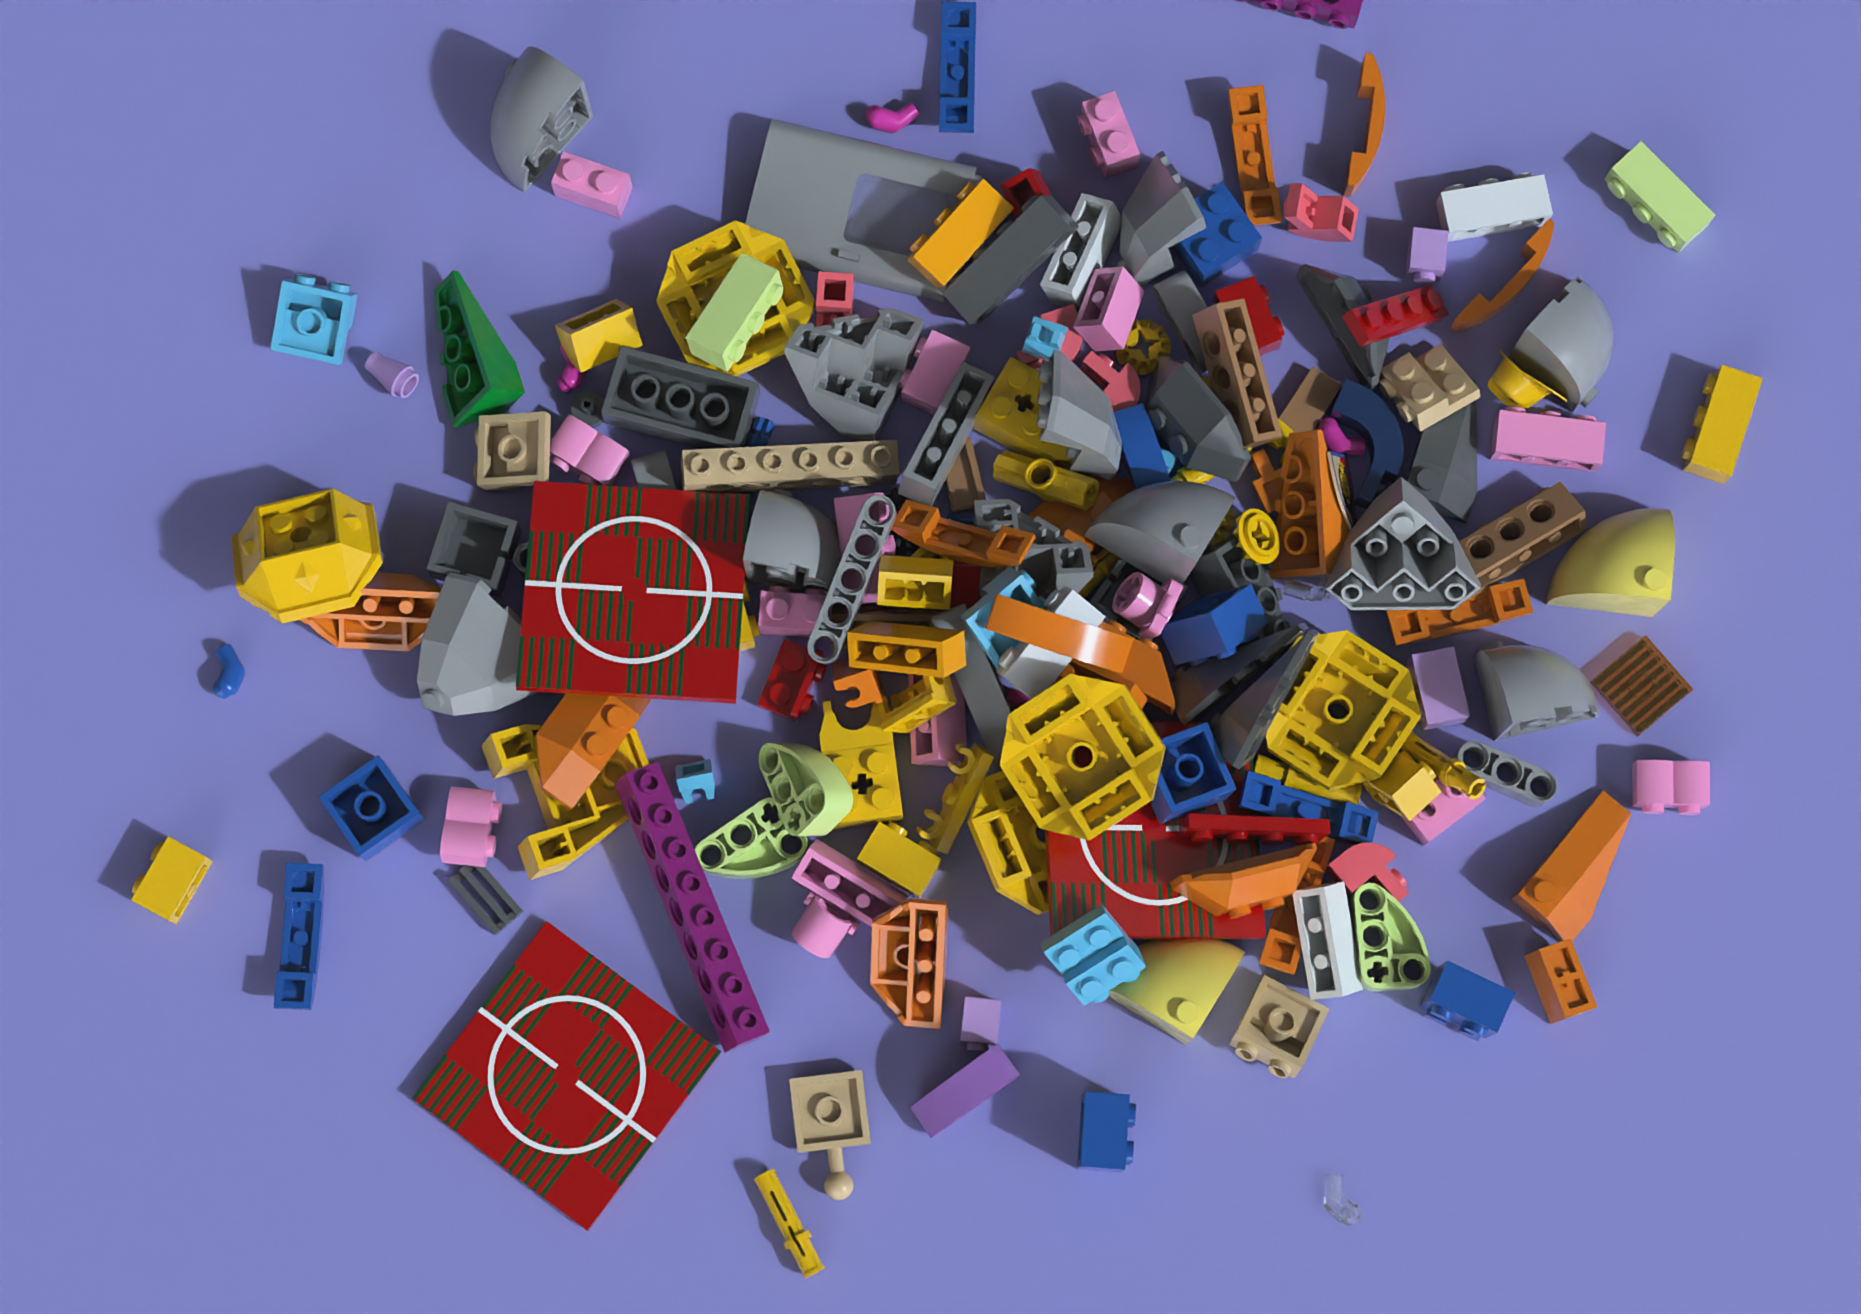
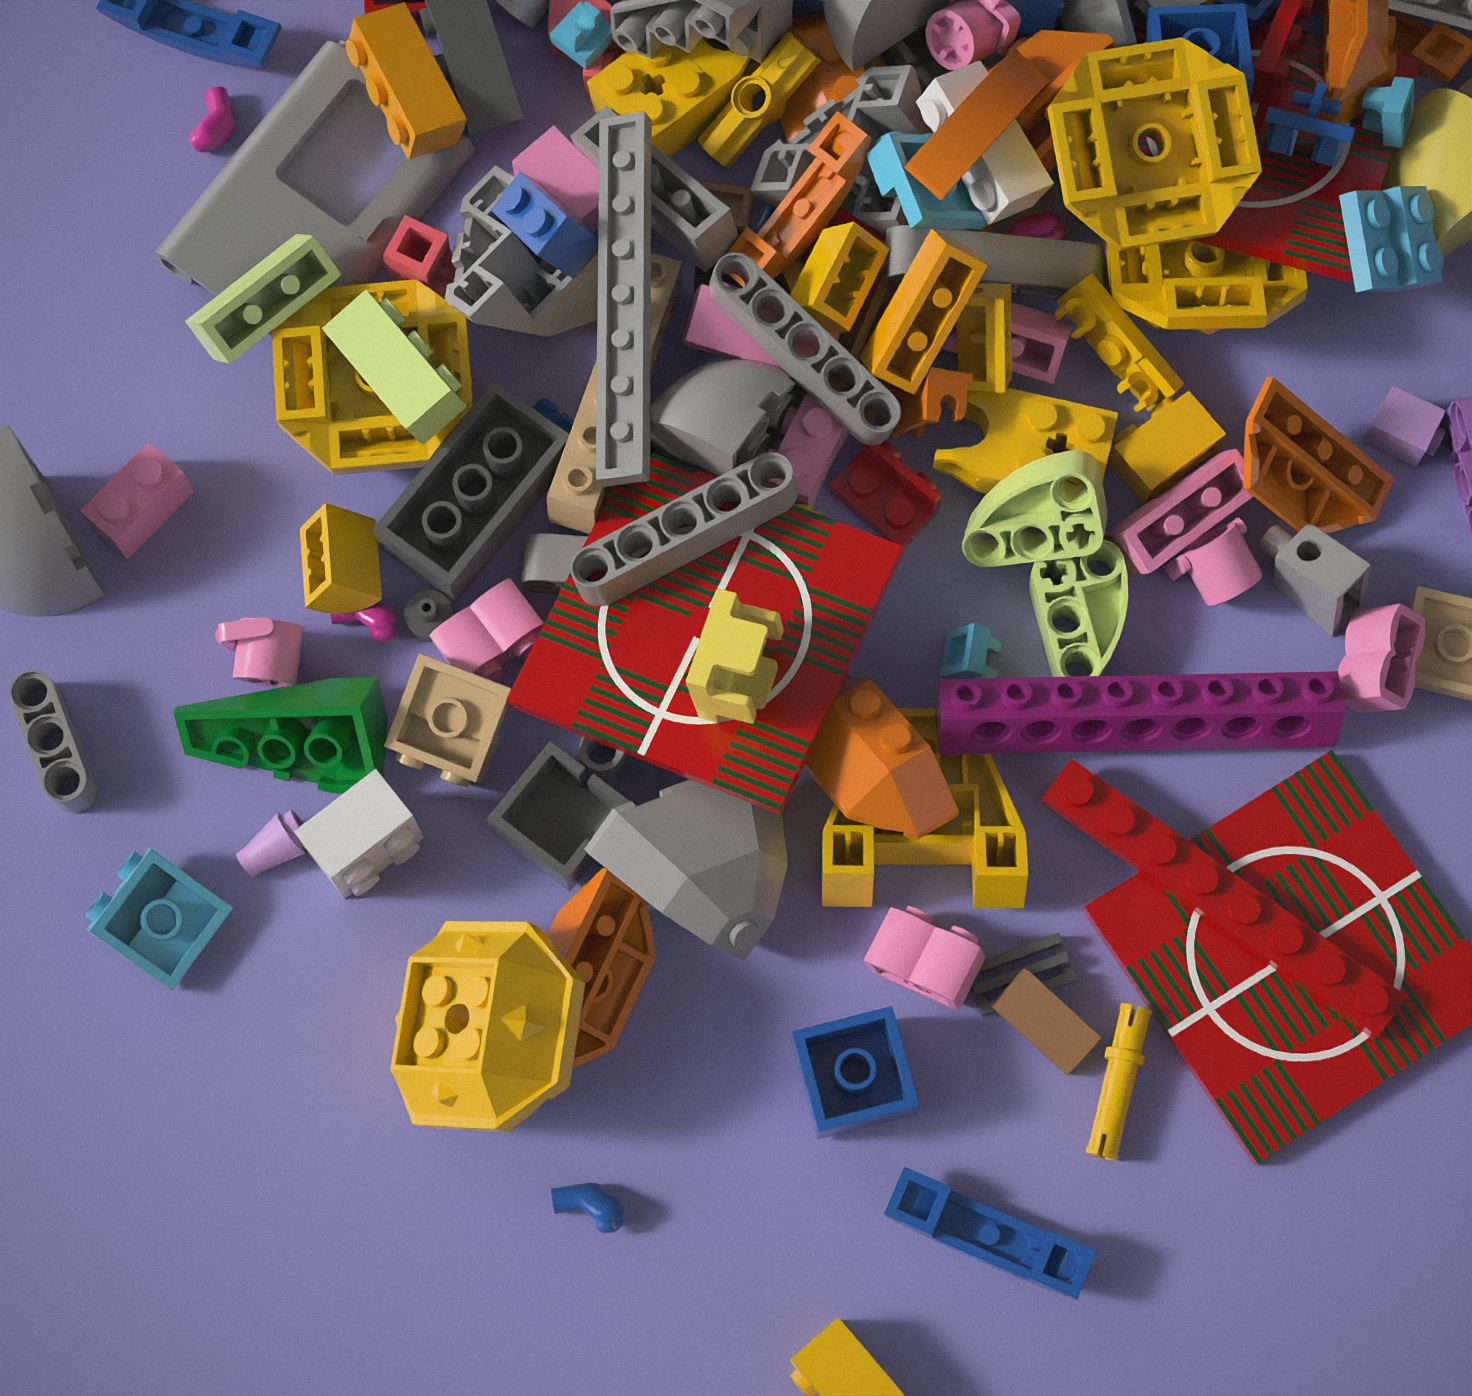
camera: 65 degrees left, 5 degrees down
(411, 186) = (38, 724): none -> light grey beam
(411, 425) = (361, 835): none -> white brick
(449, 984) = (1119, 1080): none -> yellow pin
(456, 922) = (1045, 1021): none -> medium nougat tile
(517, 311) = (264, 650): none -> bright pink piece
(584, 1011) = (1224, 899): none -> red plate
(599, 613) = (728, 668): none -> light yellow panel
(697, 565) = (697, 508): none -> light grey beam
(757, 205) = (263, 298): none -> yellowish green brick
(794, 1060) = (1381, 658): none -> bright pink brick
(836, 1005) = (1317, 574): none -> light grey torso
(842, 443) = (624, 300): none -> light grey plate
(881, 371) = (546, 225): none -> blue brick
(1163, 868) = (1331, 136): none -> blue hips
(1199, 924) = (1390, 110): none -> medium azure tile

